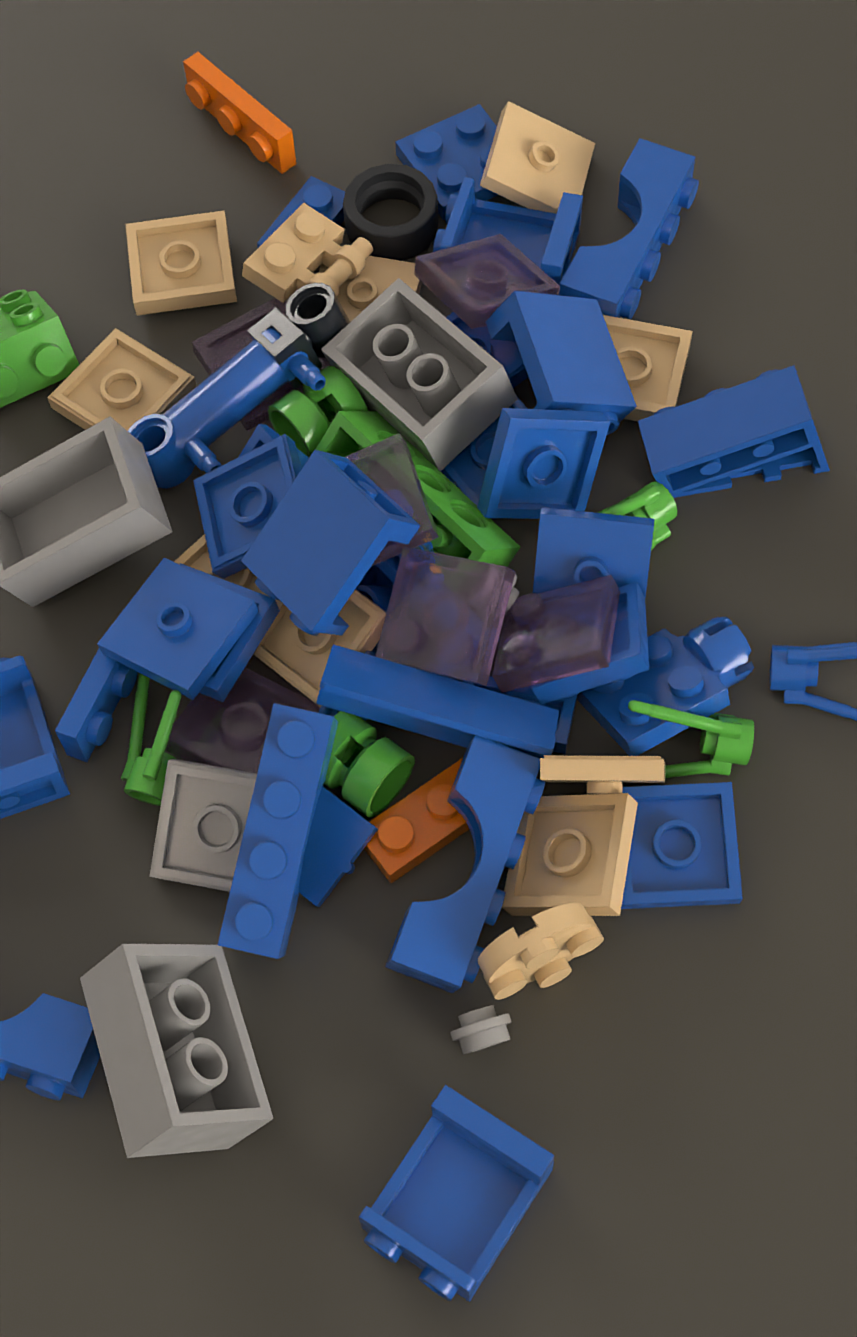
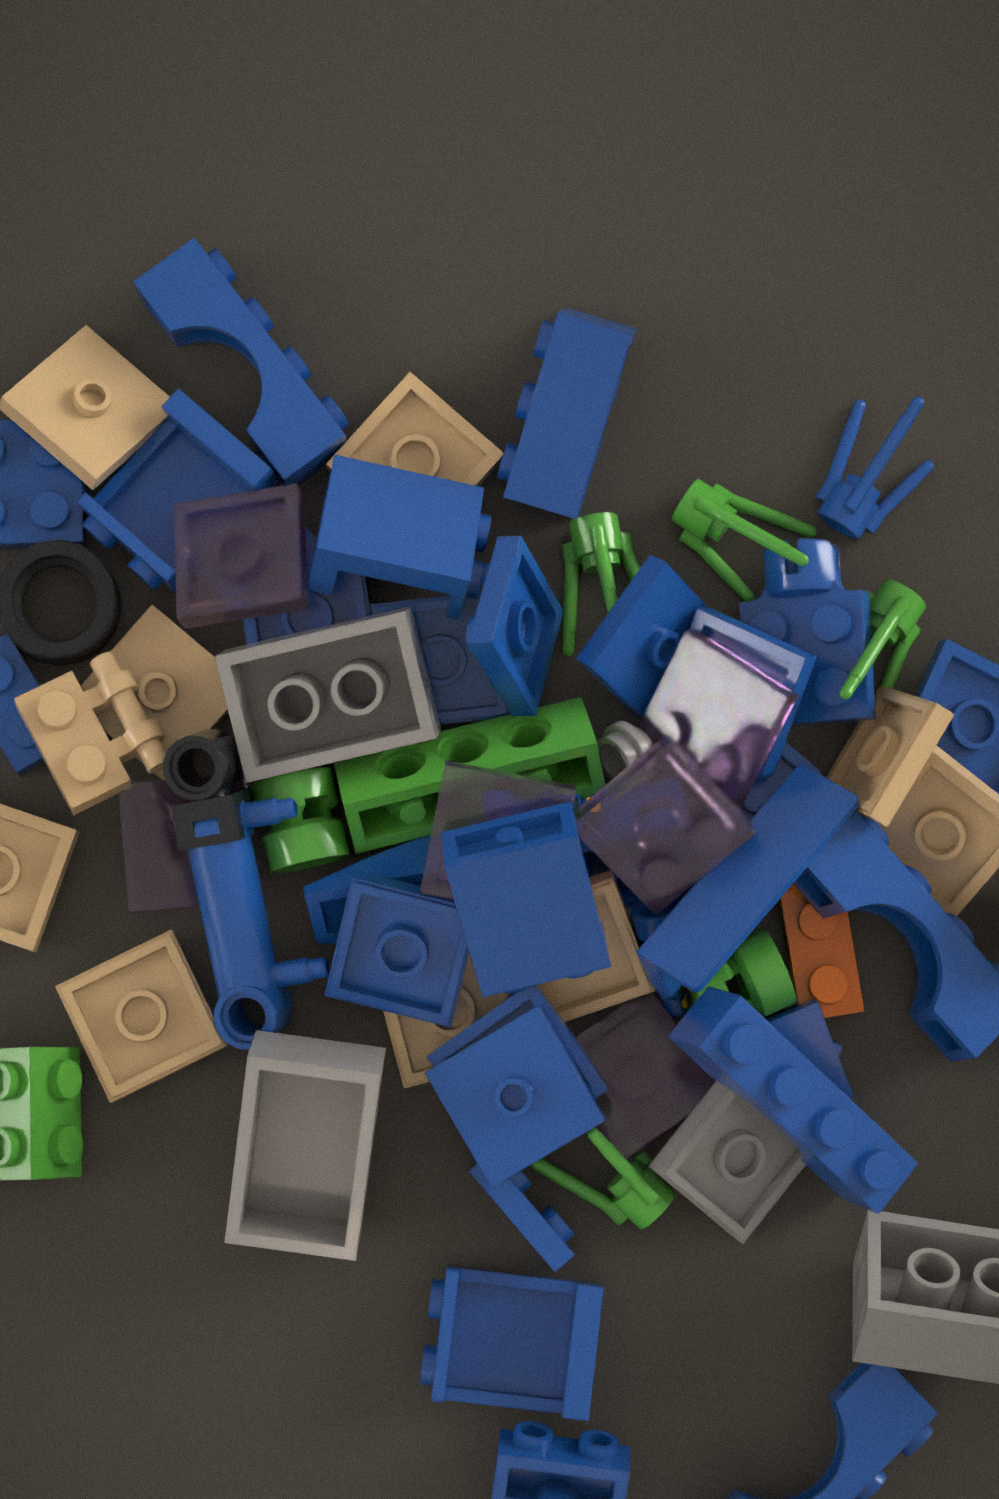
camera: 70 degrees left, 20 degrees up
(720, 576) = (713, 510): none -> bright green plant

